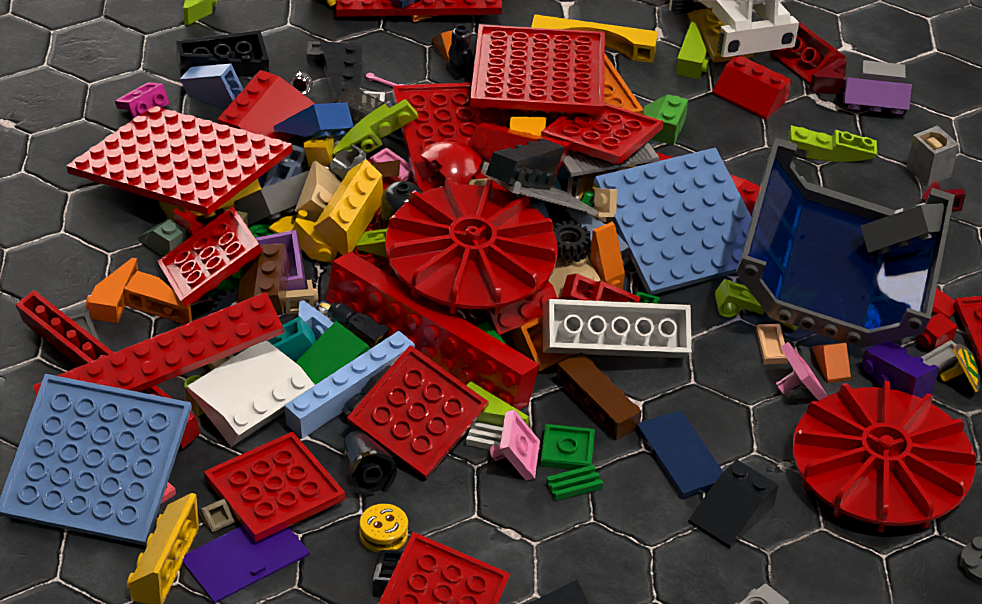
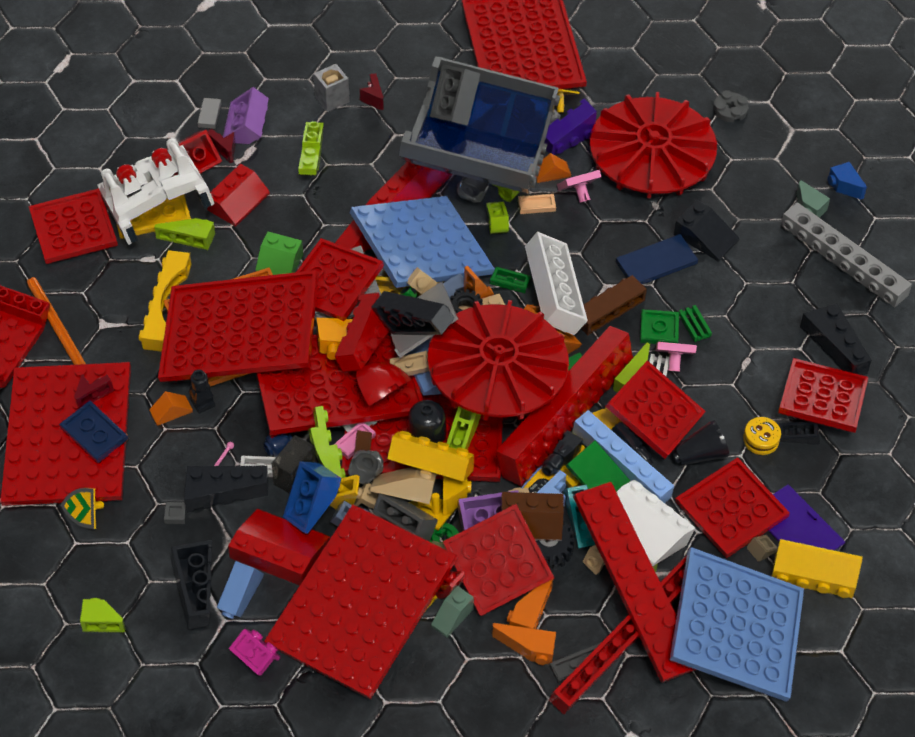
camera: 90 degrees left, 10 degrees up
(301, 82) = (230, 519): clear tile -> none
(586, 289) = (516, 290): red slope -> none

